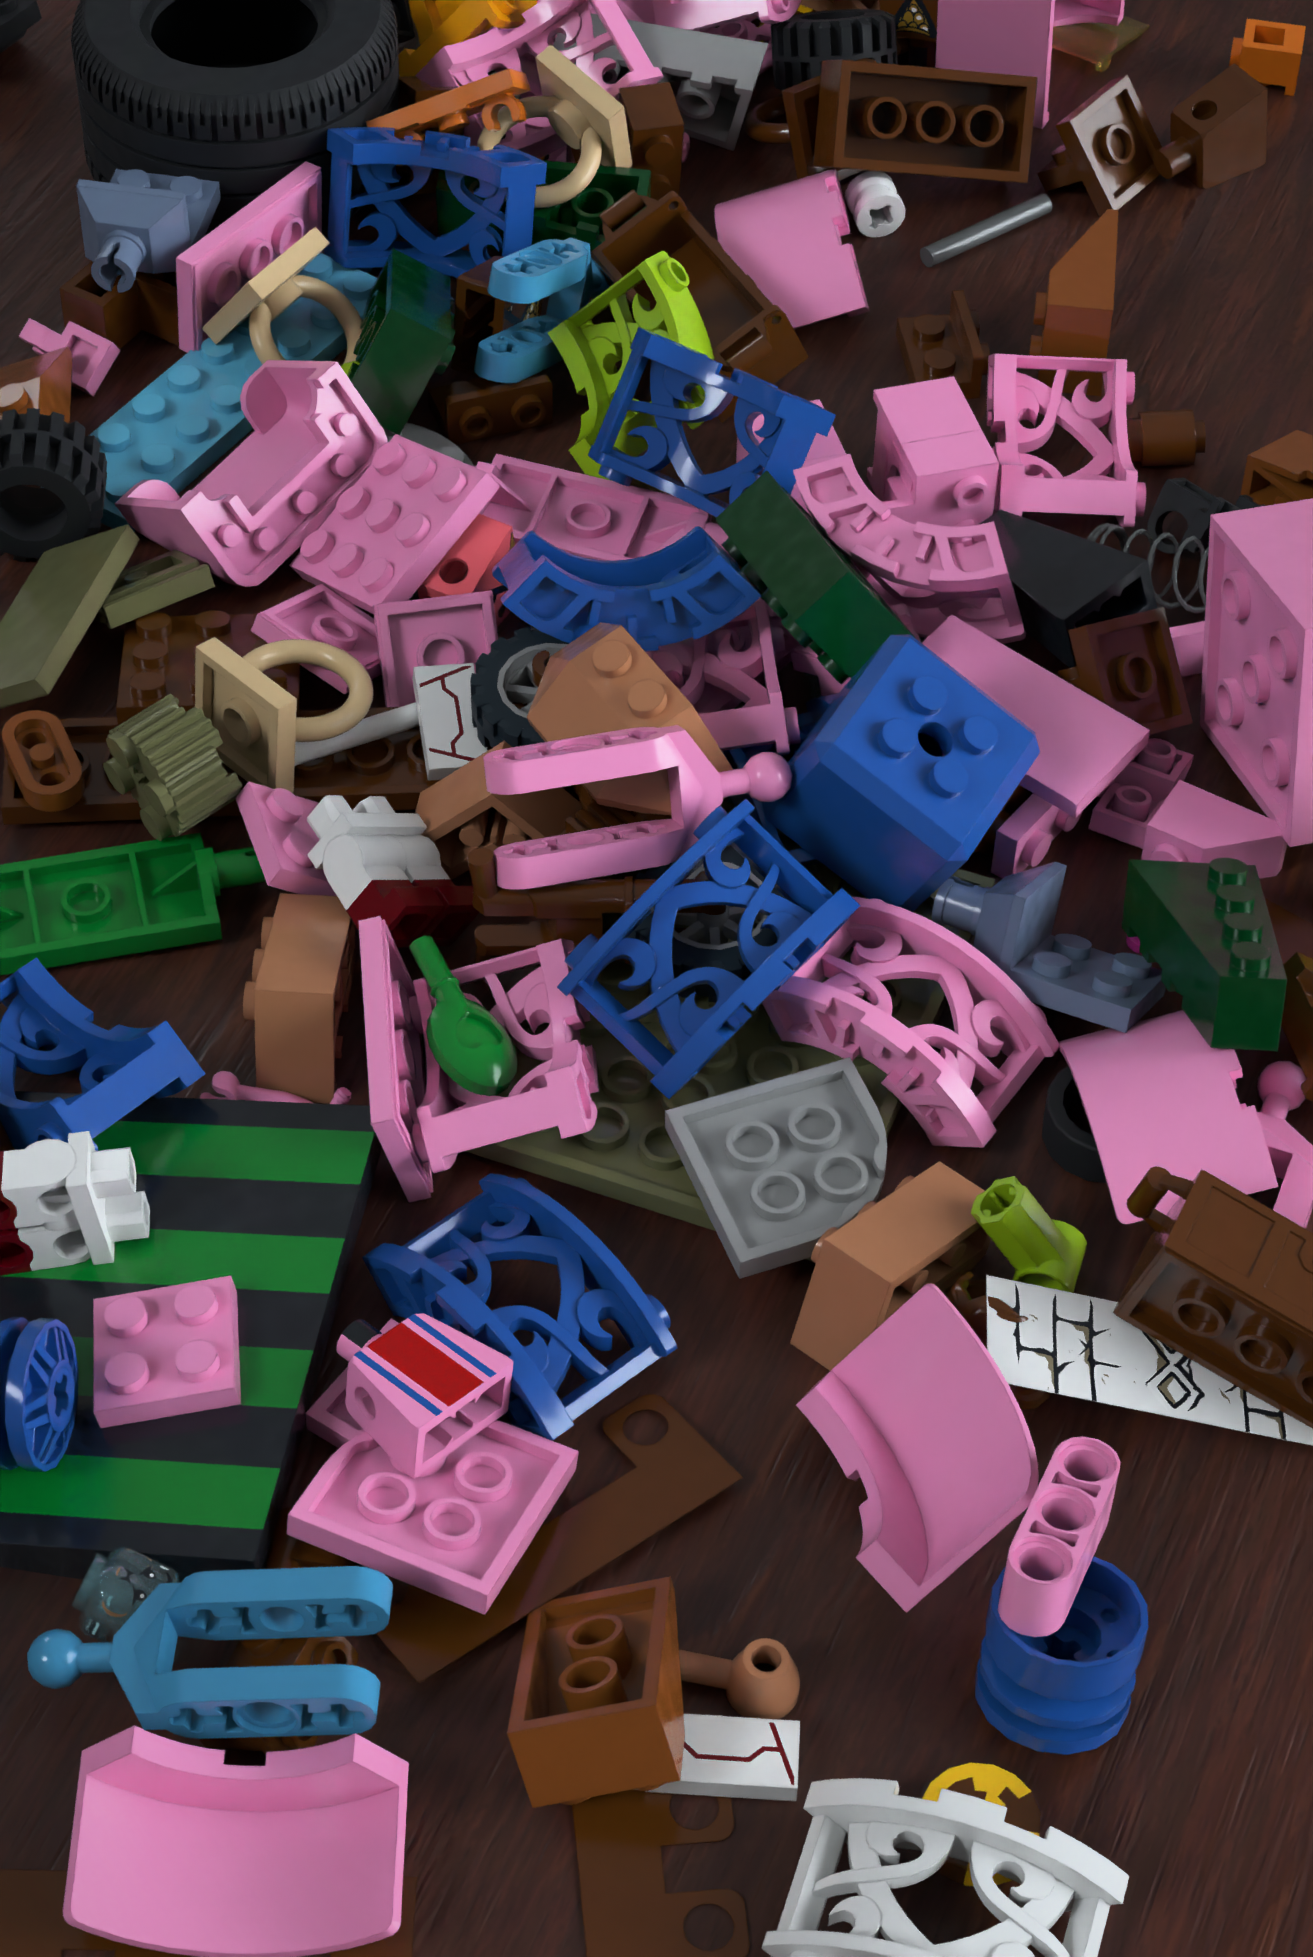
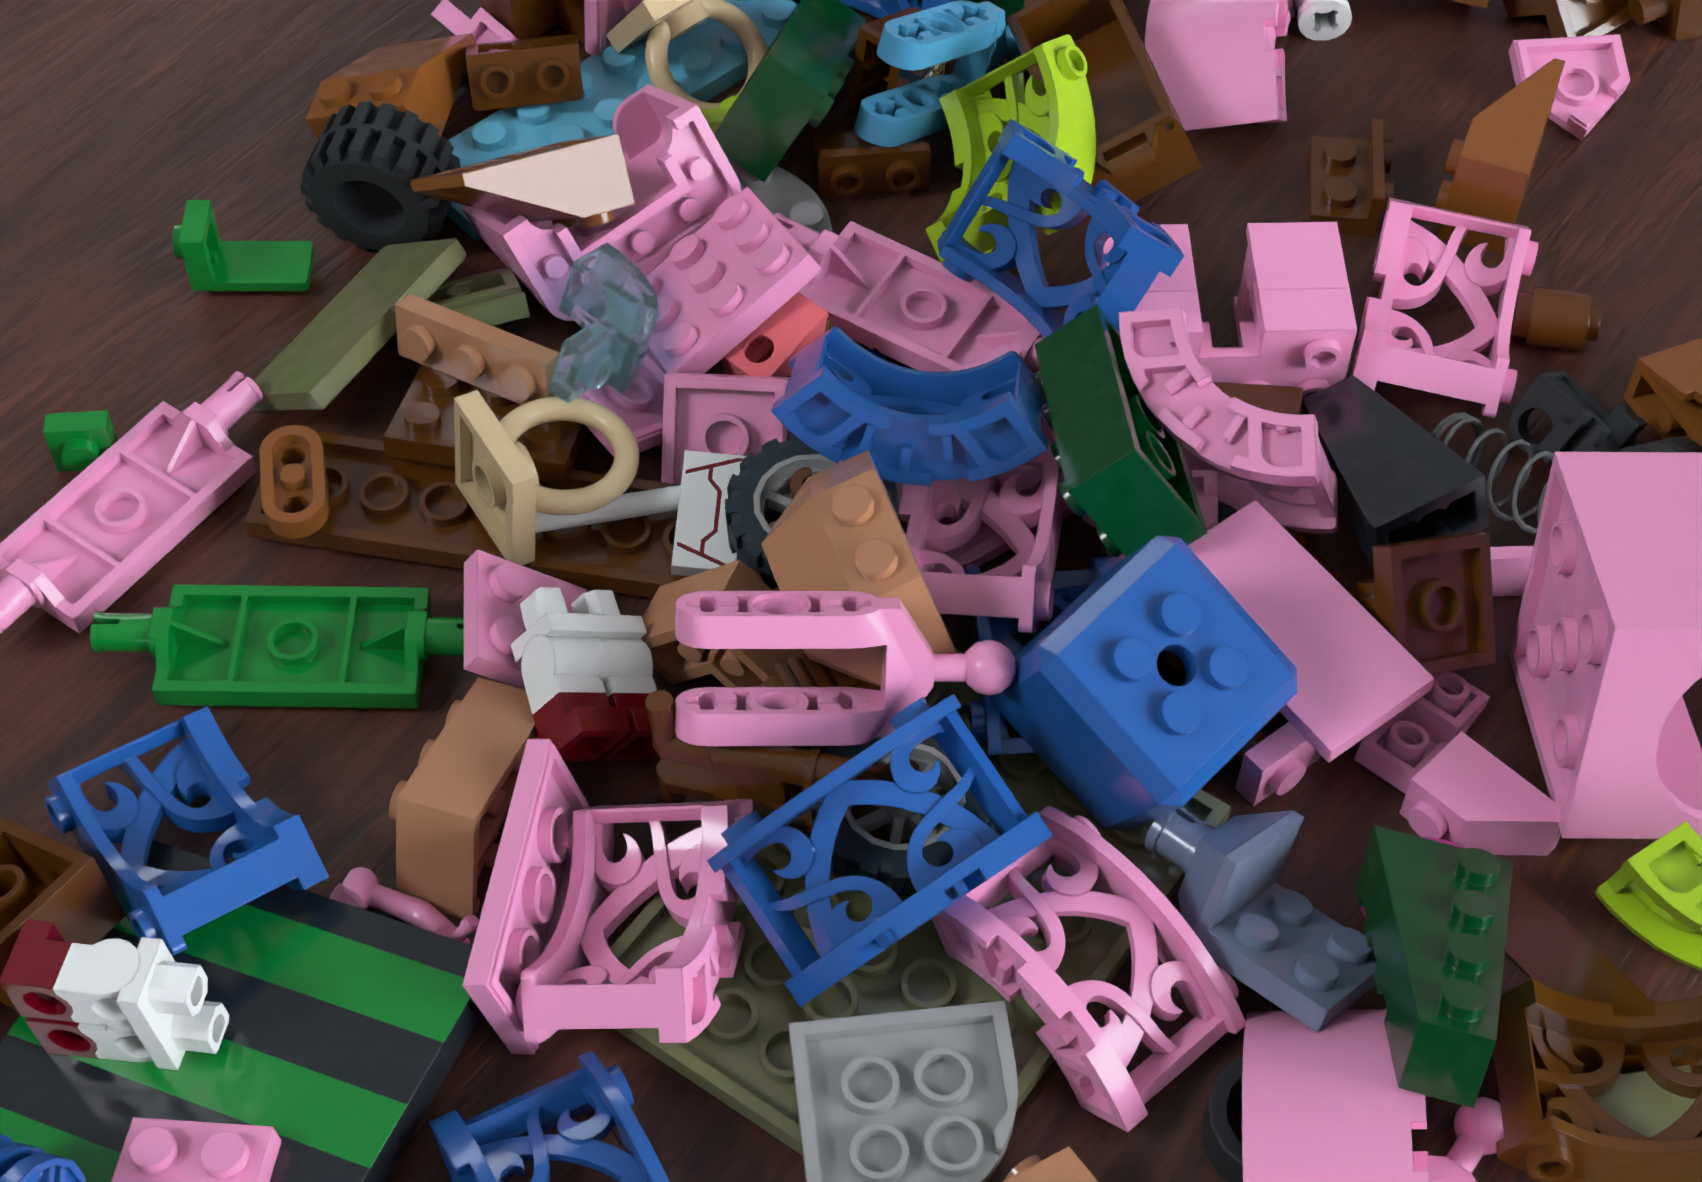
camera: 15 degrees right, 5 degrees up
(136, 372) = (524, 72): none -> reddish brown bracket
(170, 767) = (407, 518): olive brick -> none
(181, 616) = (473, 351): none -> nougat plate
(208, 458) = (557, 182): none -> slope
(308, 567) = (617, 319): none -> clear light blue arch
(461, 1032) = (606, 885): green piece -> none
(985, 230) = (1432, 51): dark grey bar -> none
(1141, 233) = (1590, 81): none -> bright pink plate

